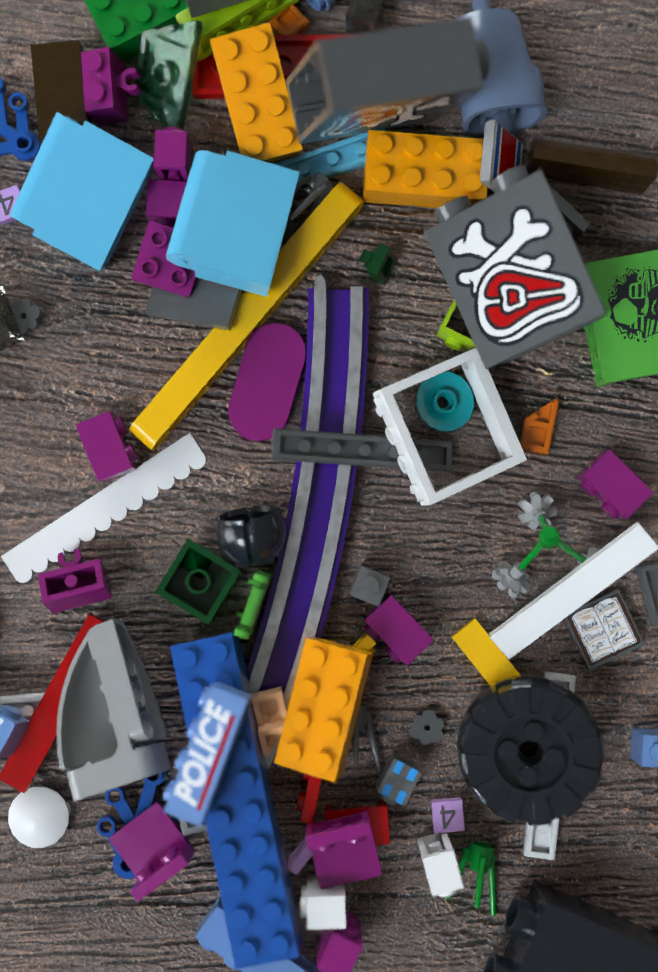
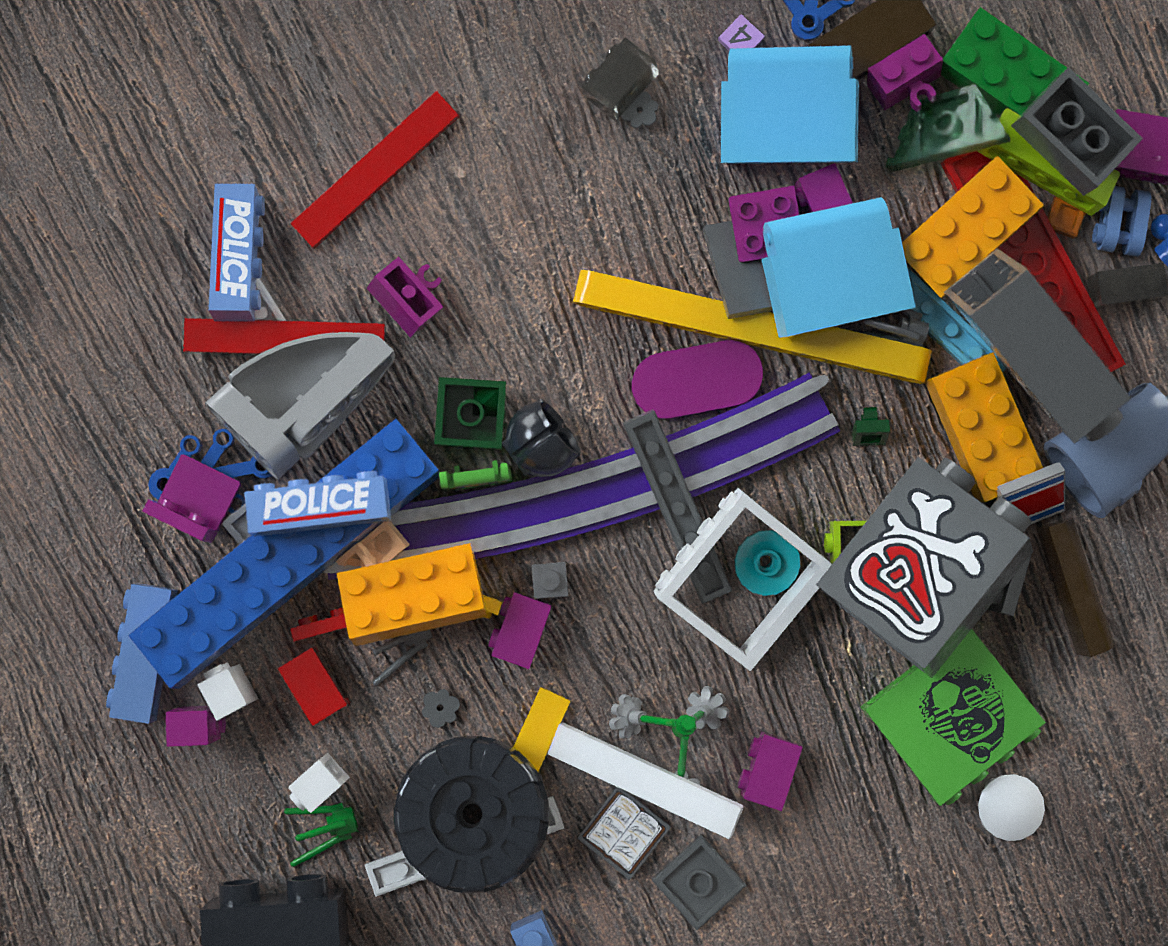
camera: 65 degrees right, 0 degrees up
(39, 817) = (165, 376): white dish -> none
(107, 446) = (554, 257): magenta brick -> none
(107, 503) = (490, 280): white sticker -> none
(173, 154) = (869, 176): magenta brick -> none
(299, 857) = (258, 647): lavender tile -> none
(343, 850) = (285, 683): magenta bracket -> none
(398, 779) = (376, 703): flat silver brick -> none
(447, 815) = (365, 770): lavender tile -> none
(538, 429) = (788, 669): orange tile -> none

